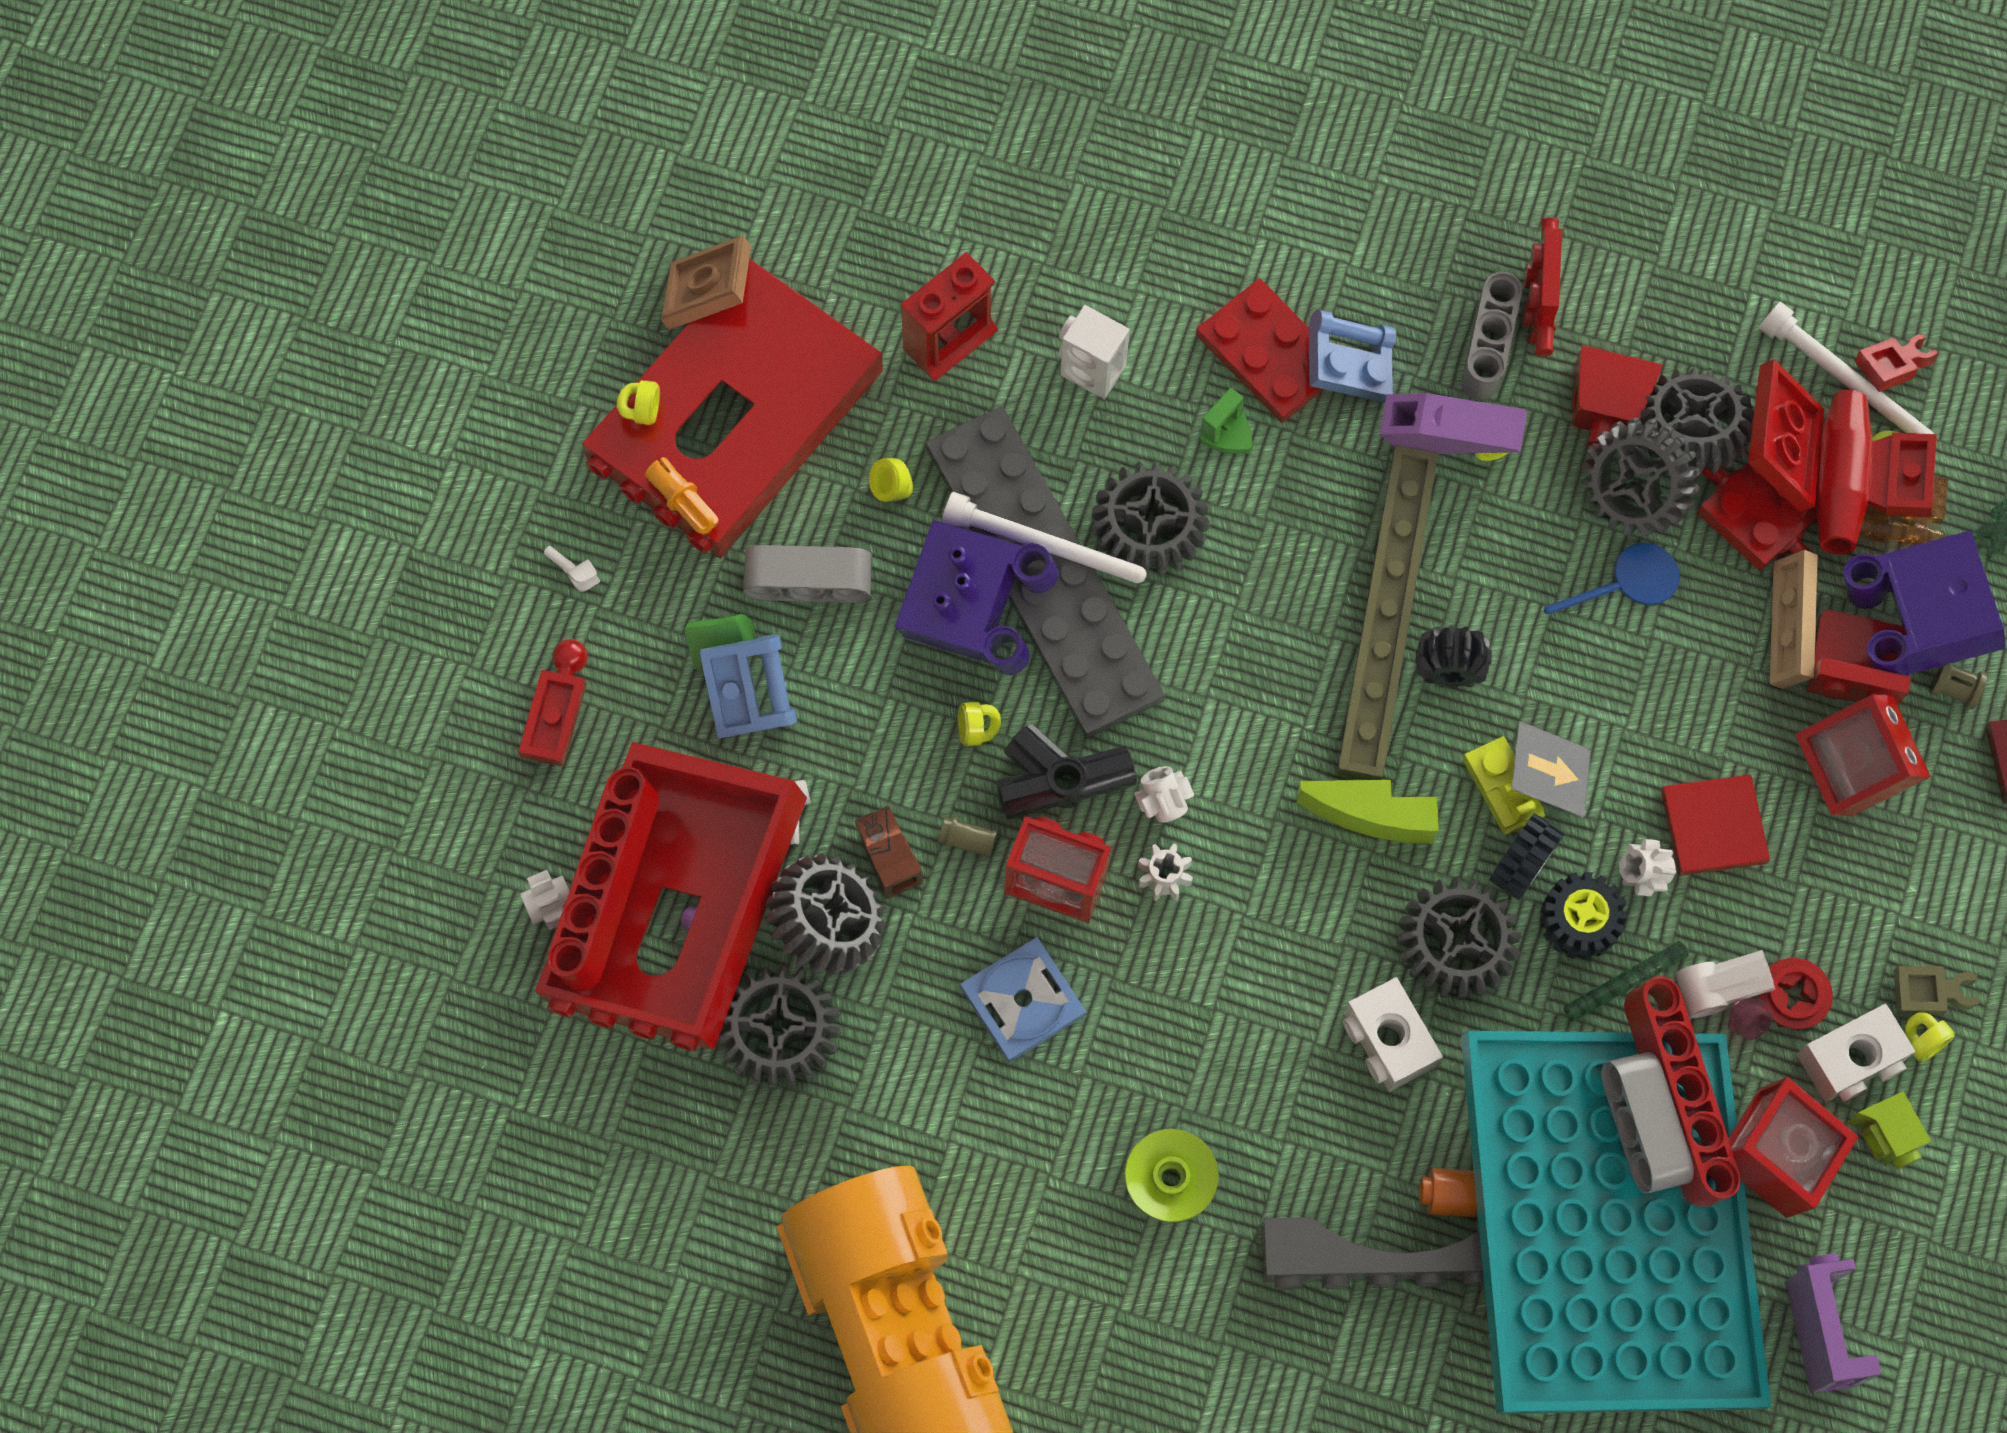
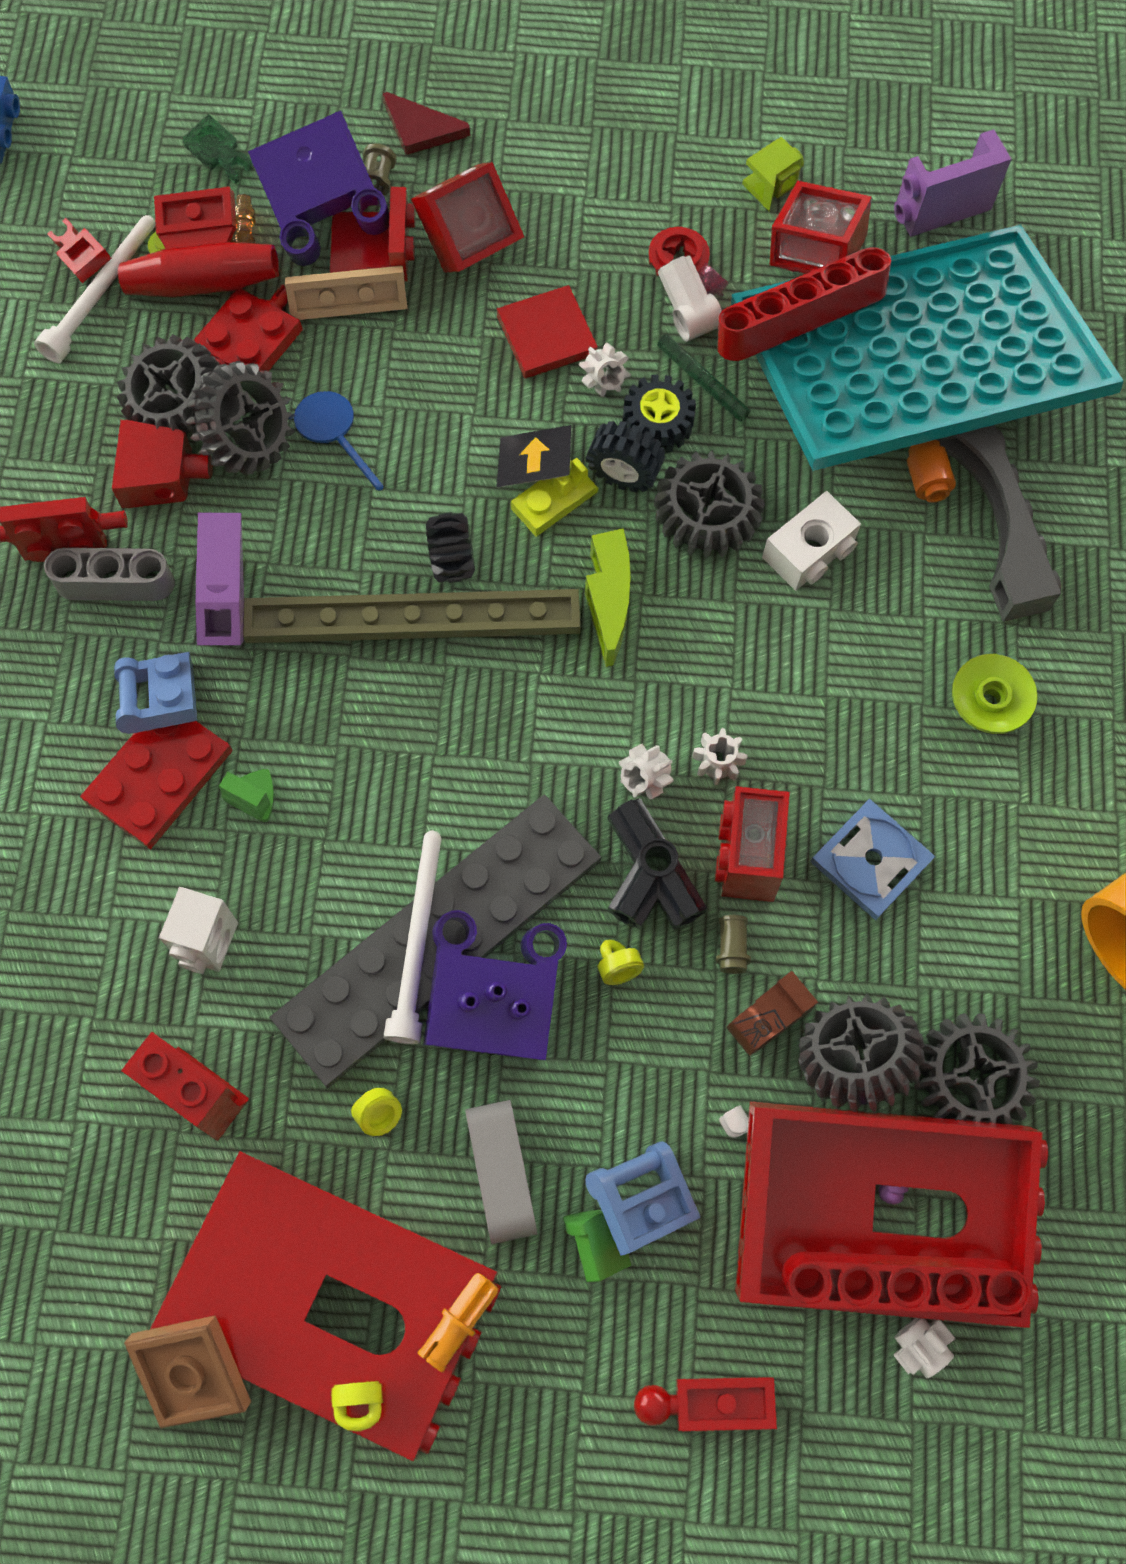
camera: 105 degrees left, 0 degrees up
(582, 576) = (556, 1420): white hand -> none
(1168, 520) = (349, 844): dark grey gear -> none
(1647, 1122) = (840, 321): light grey beam -> none
(1786, 436) = (176, 310): red plate -> none
(1875, 1035) = (718, 203): white brick -> none
(1927, 991) = (647, 162): olive plate -> none
(1932, 1040) = (691, 155): neon yellow tile -> none

